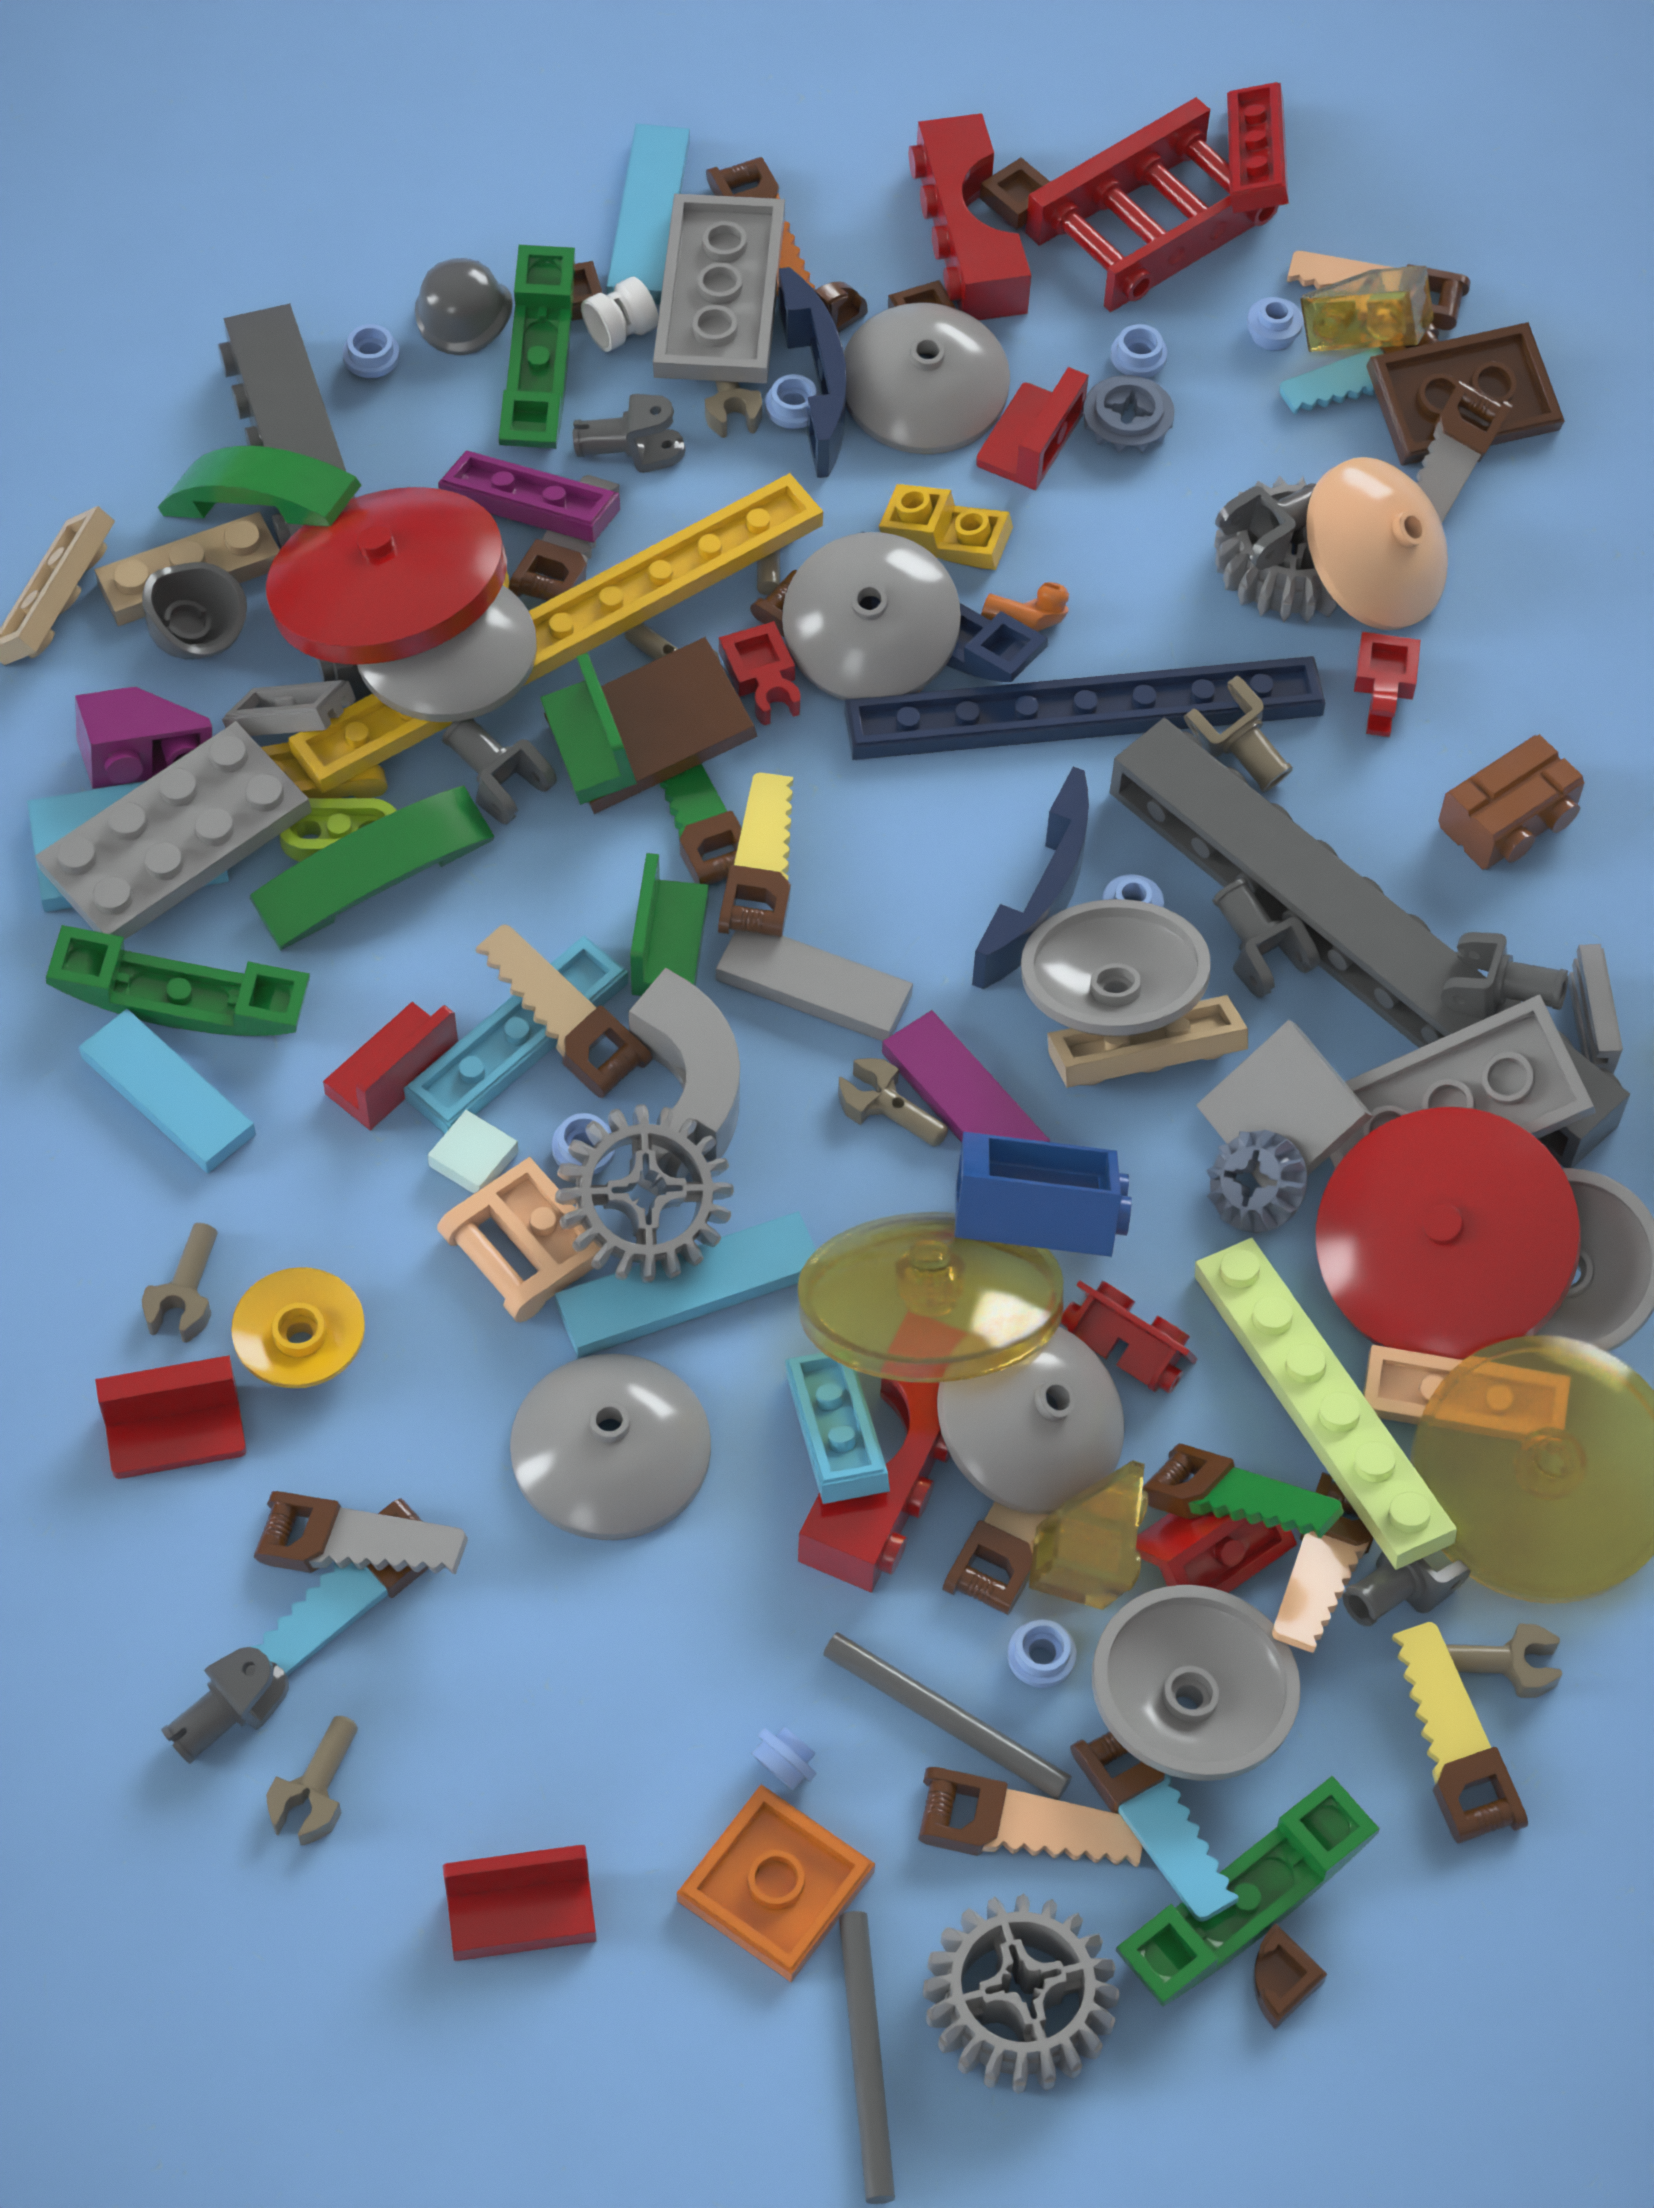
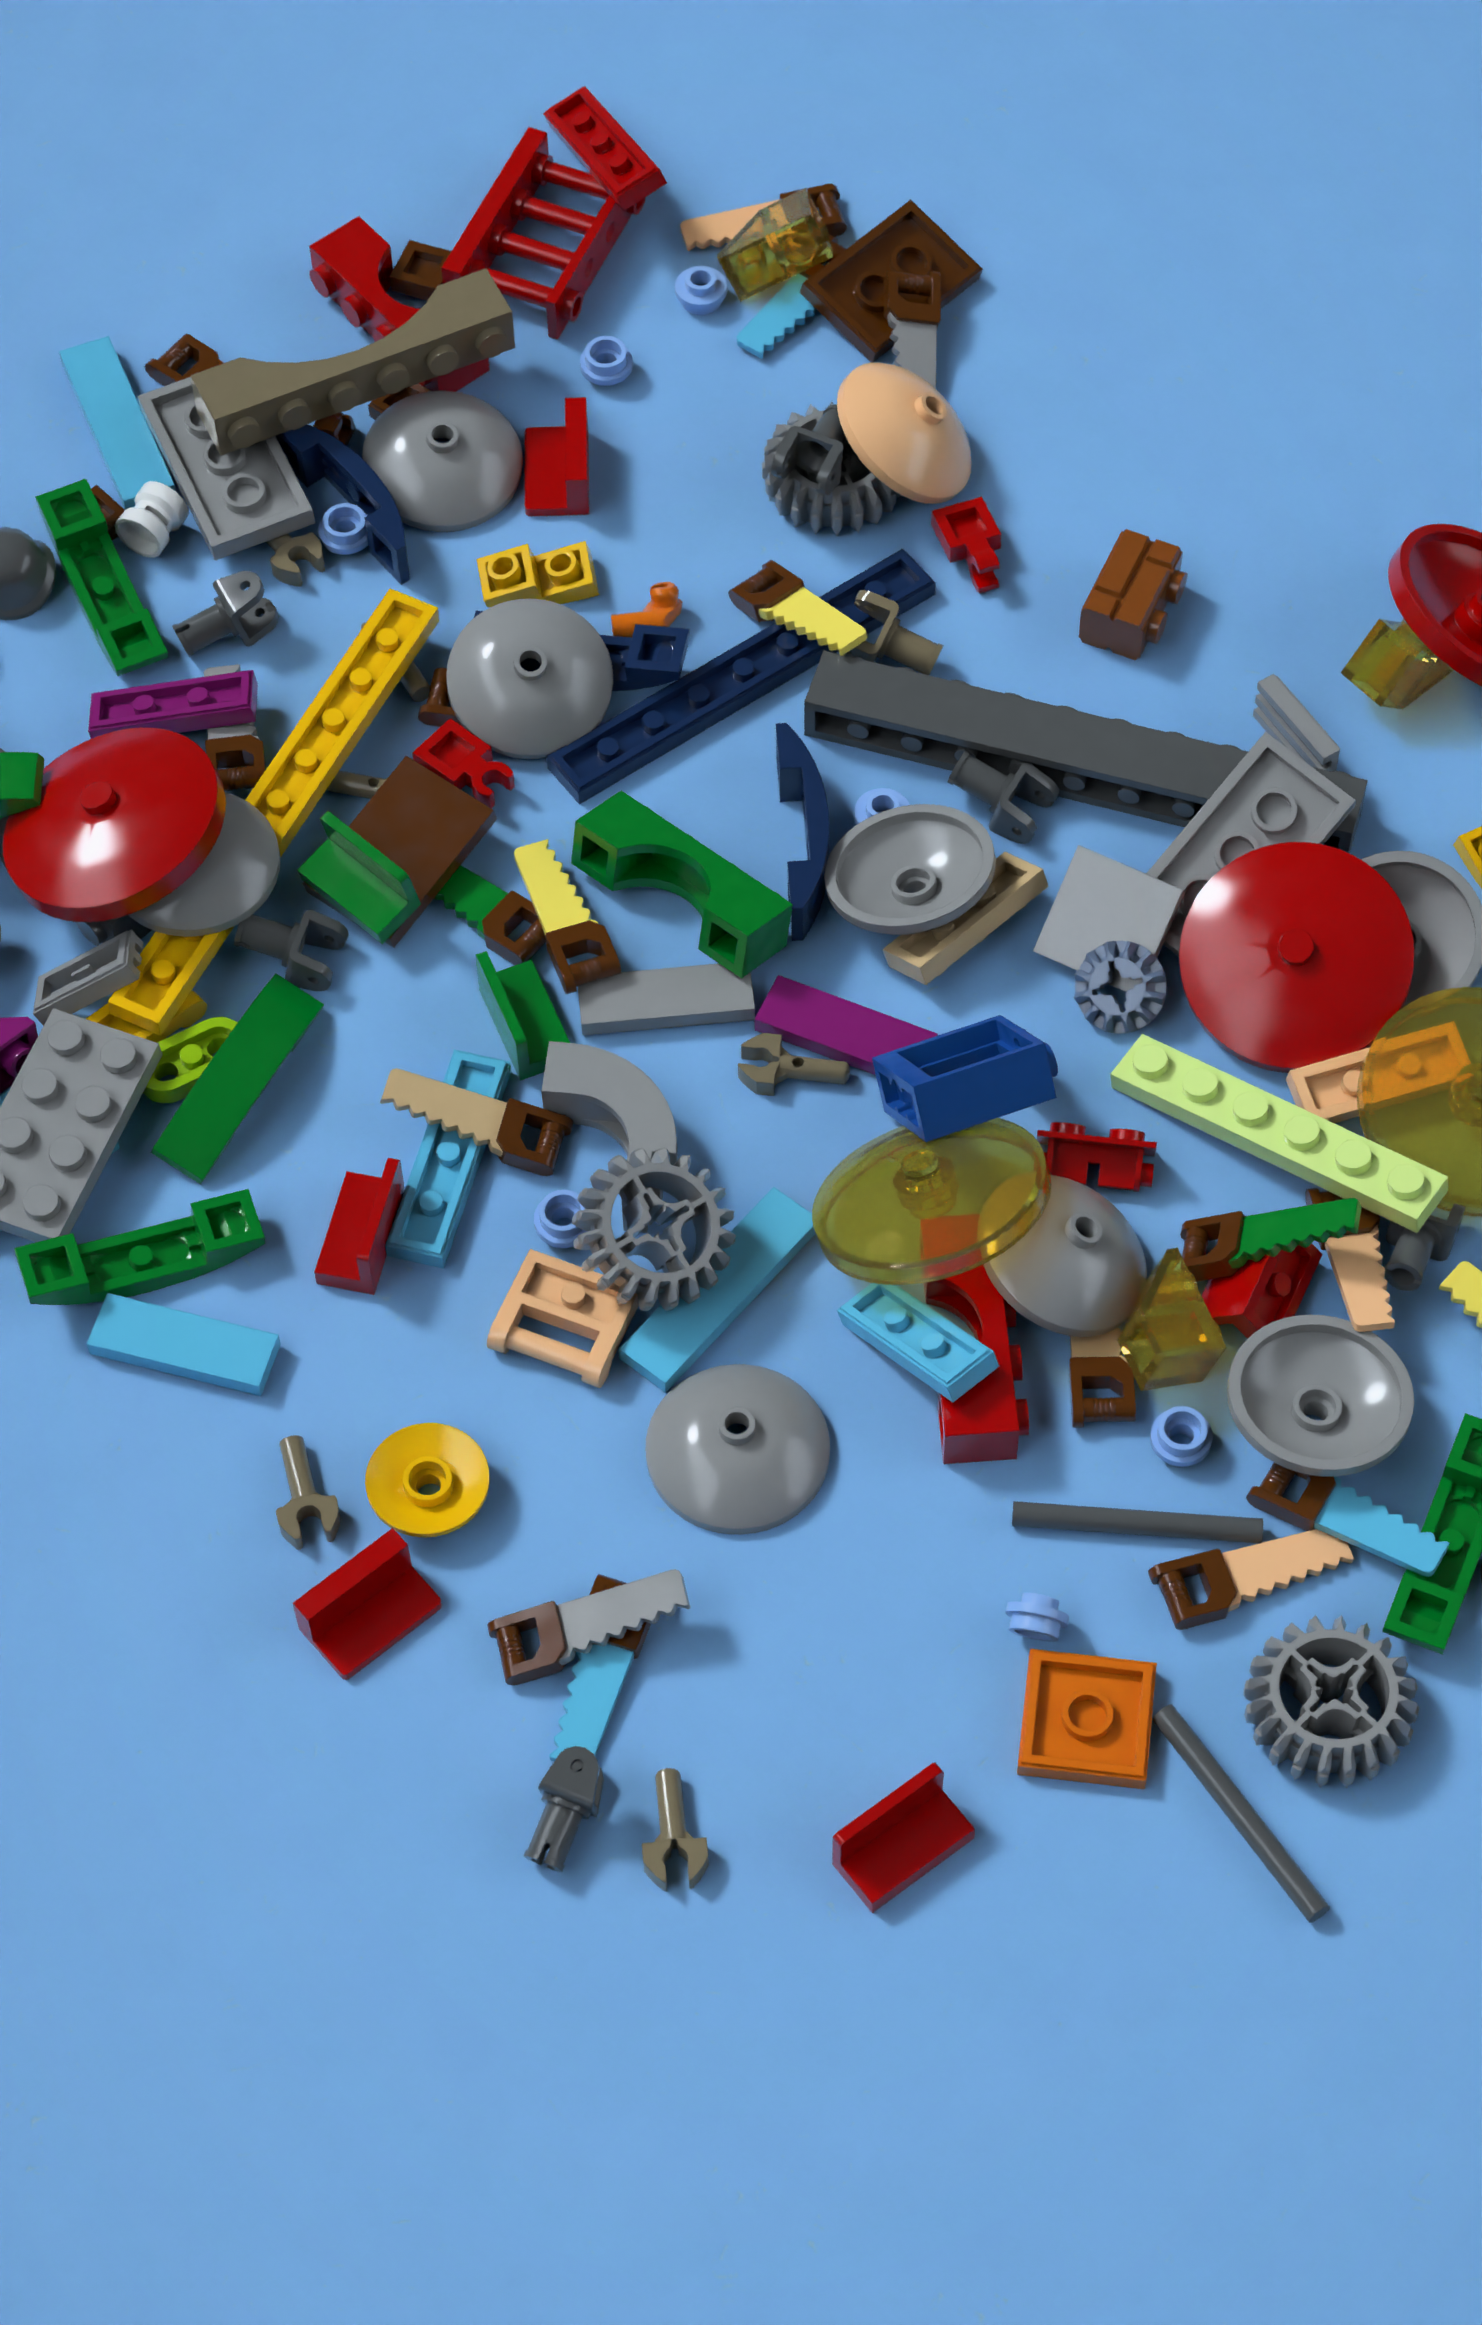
camera: 25 degrees left, 0 degrees up
(472, 1152) = (475, 1270): light aqua tile -> none
(867, 821) = (634, 847): none -> green arch
(993, 255) = (261, 399): none -> dark tan arch
(1110, 399) = (642, 402): sand blue gear -> none
(1164, 653) = (782, 598): none -> piece
(1504, 979) = (1228, 734): dark grey piece -> none

